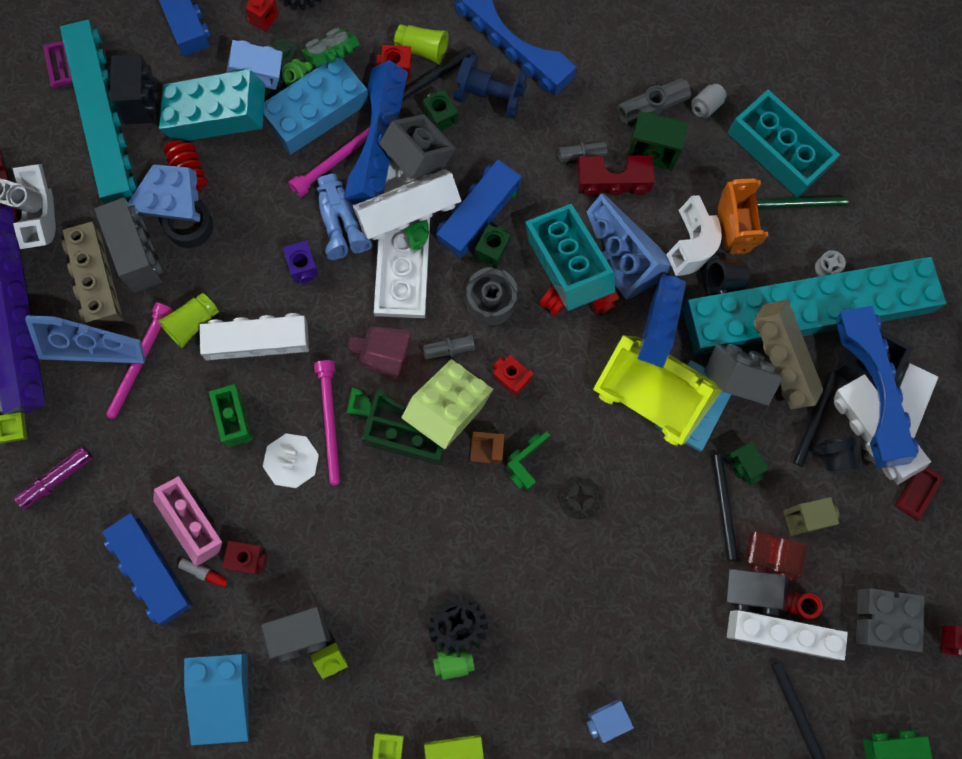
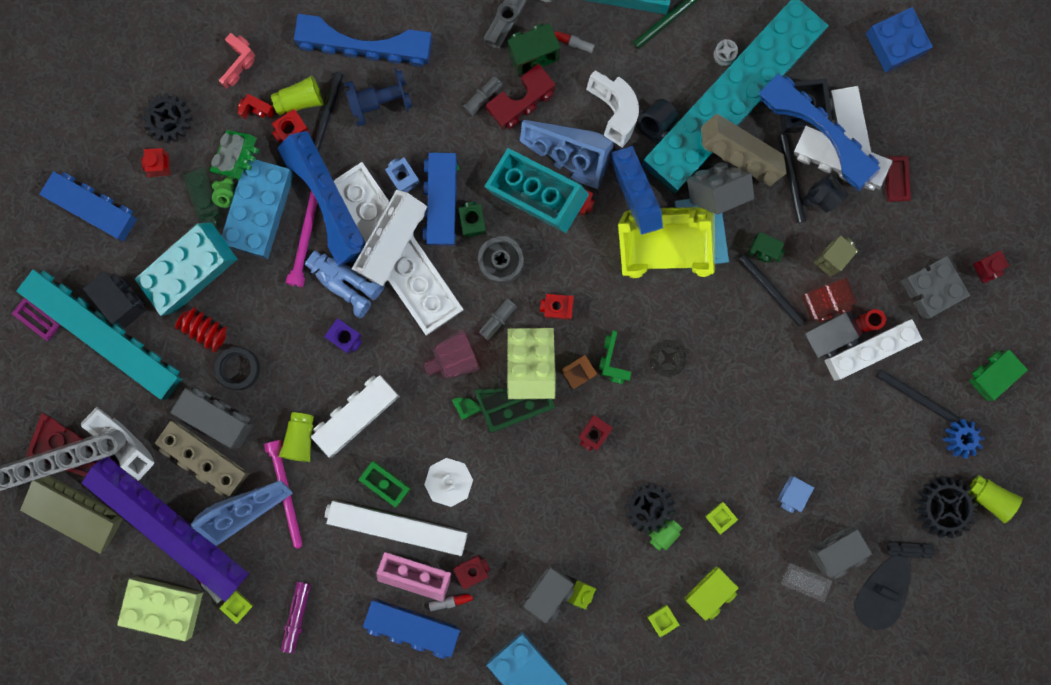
camera: 30 degrees left, 10 degrees up
(167, 193) = (208, 360): medium blue wing -> none
(210, 465) = (396, 527): none -> white brick
(261, 60) = (188, 212): light blue brick -> none
(325, 371) = (424, 403): dark pink piece -> none
(378, 21) = (259, 107): none -> red bracket
(417, 146) = (364, 188): dark grey brick -> none
(417, 235) = (413, 254): green tile -> none
(444, 119) = (361, 149): dark green brick -> none
(464, 157) = (398, 166): none -> medium blue brick
(465, 507) = (602, 429): none -> dark red brick
(520, 689) = (721, 518): none -> lime plate
(552, 301) = (546, 231): red wheel -> none
(697, 164) = (574, 41): none -> light grey piece
(740, 217) = (637, 66): orange piece -> none

